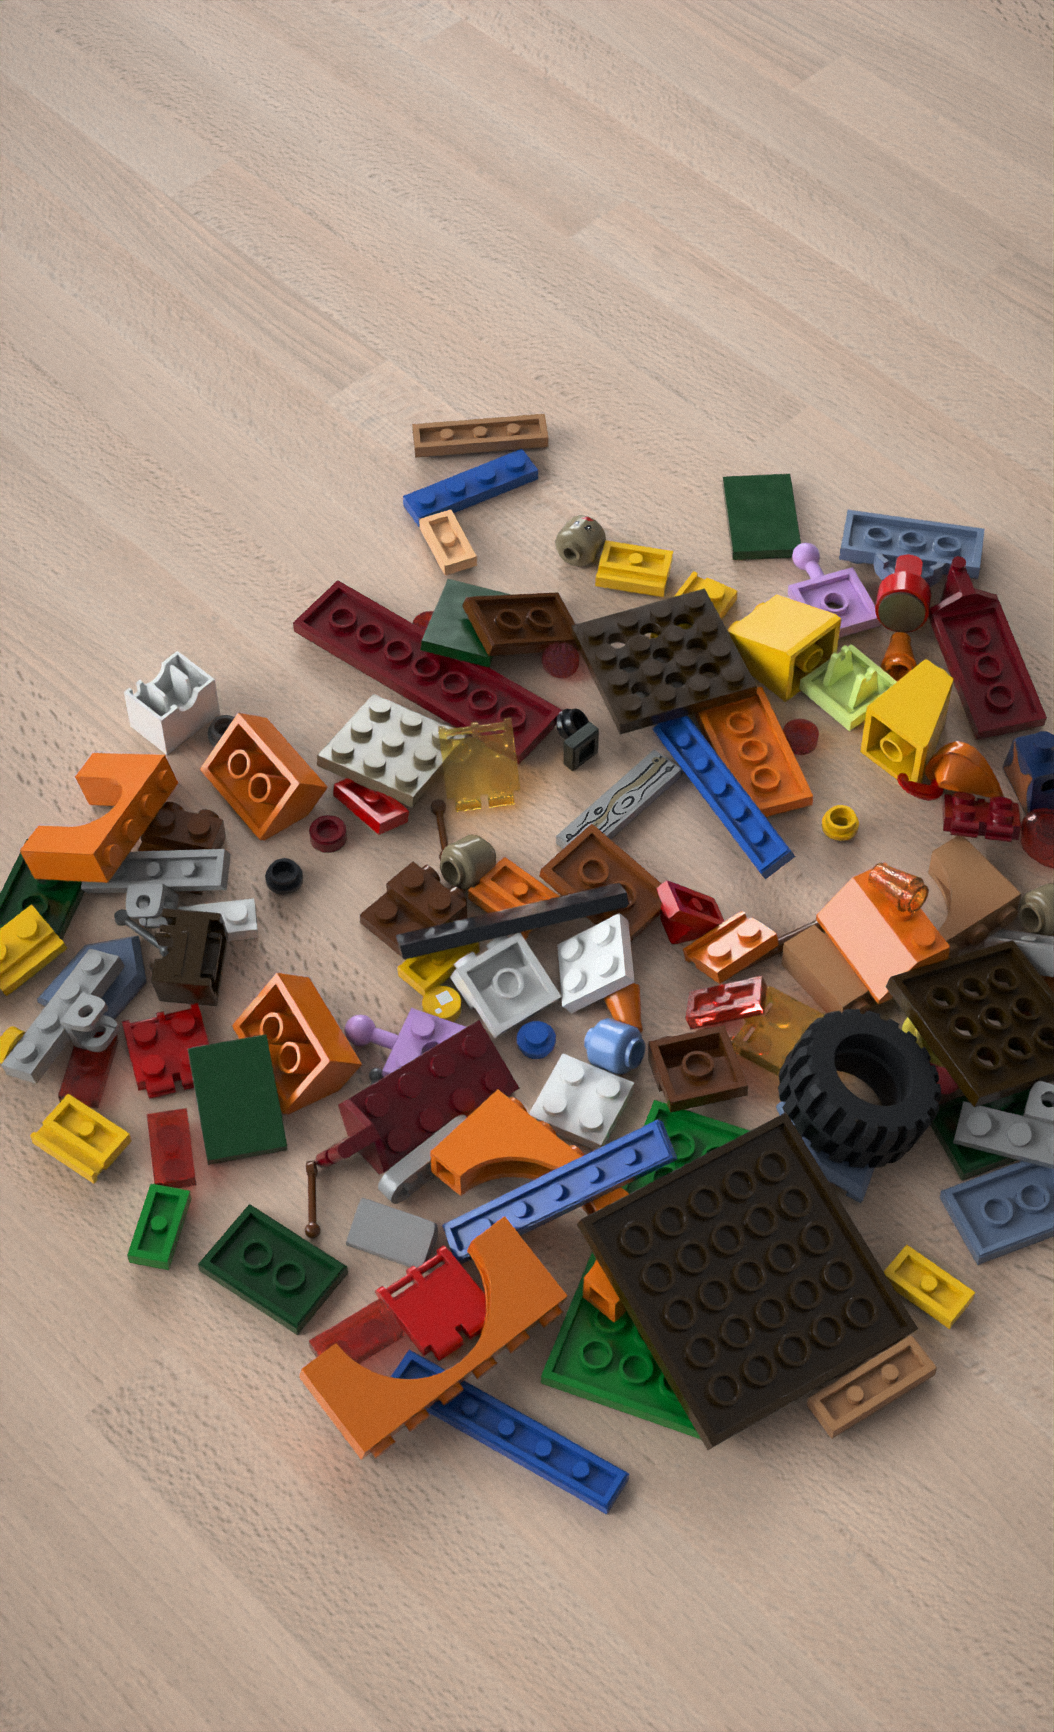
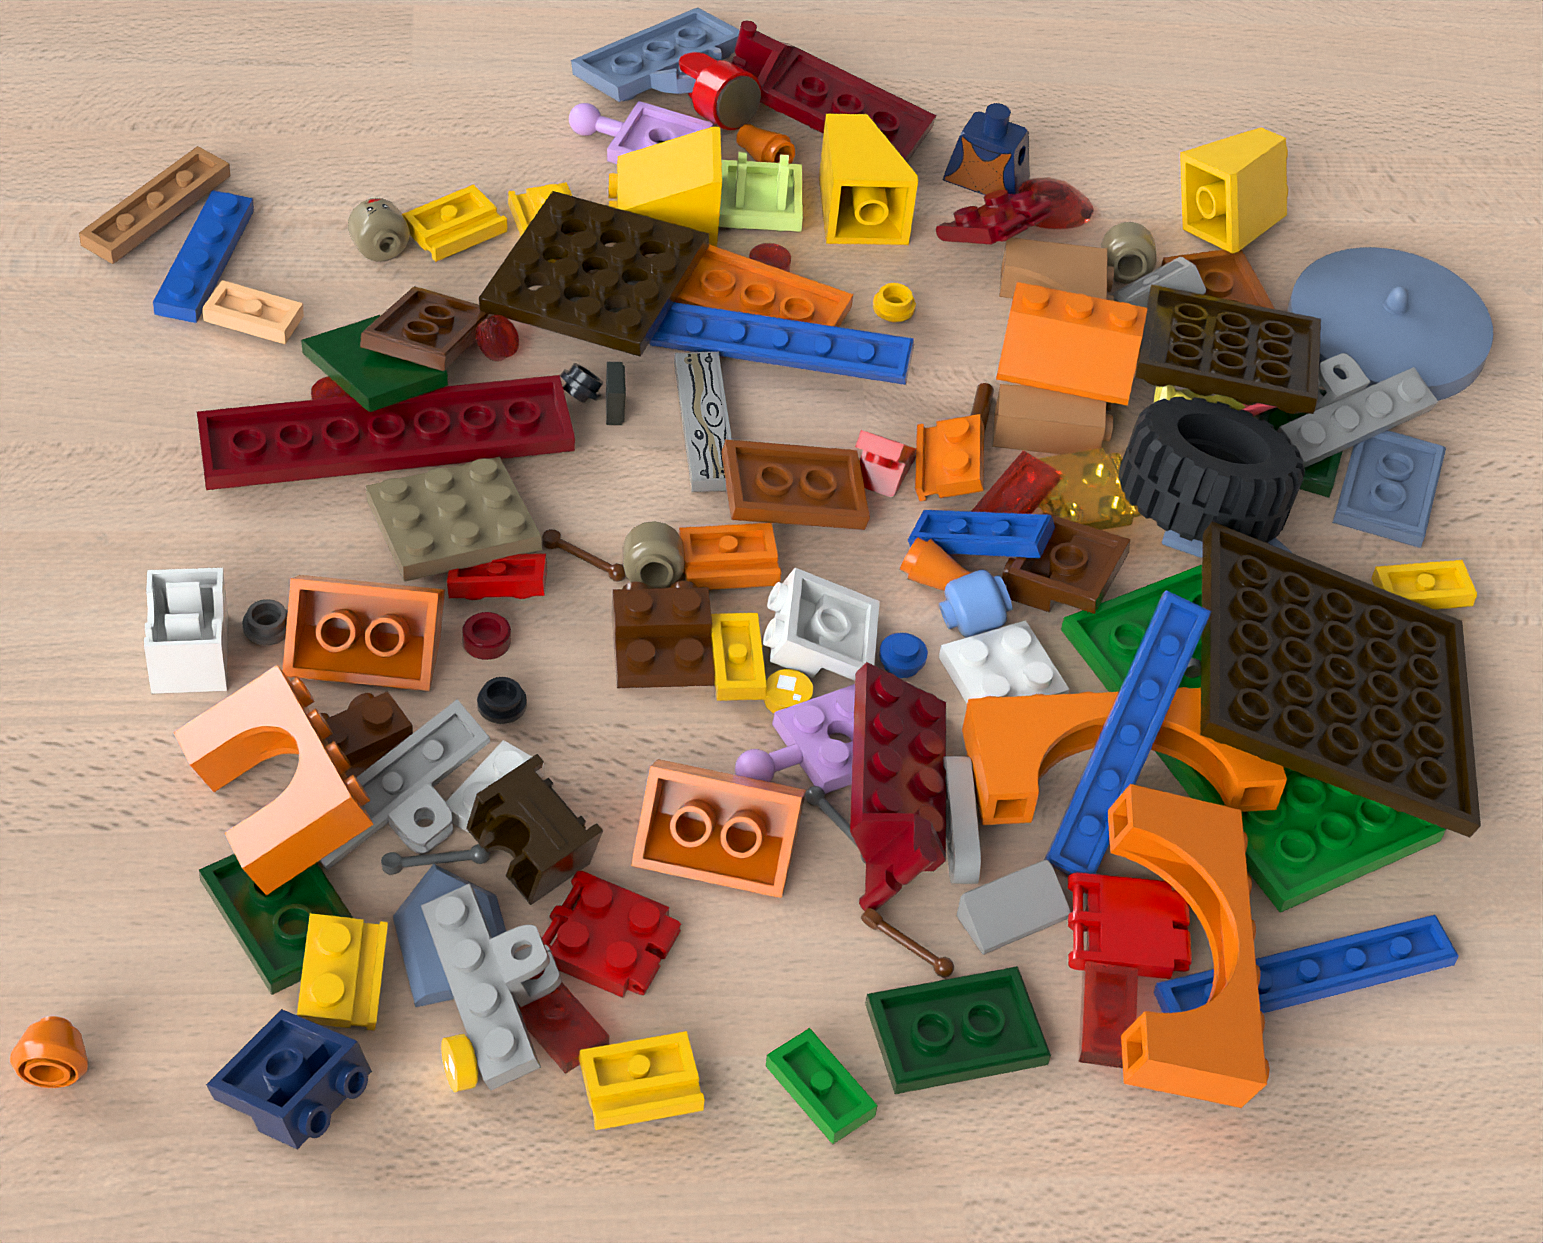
camera: 55 degrees left, 5 degrees down
(171, 1148) = (736, 1012): clear red plate -> none
(237, 1099) = (737, 916): dark green tile -> none
(479, 765) = (557, 468): clear yellow plate -> none
(512, 920) = (772, 568): black tile -> none
(595, 963) = (878, 548): white plate -> none
(673, 1007) = (985, 532): none -> blue tile
(761, 516) = (500, 114): dark green tile -> none
(871, 1386) = (1492, 690): medium nougat plate -> none
(899, 887) = (1069, 283): clear orange cone -> none
(954, 768) = (938, 194): orange piece -> none

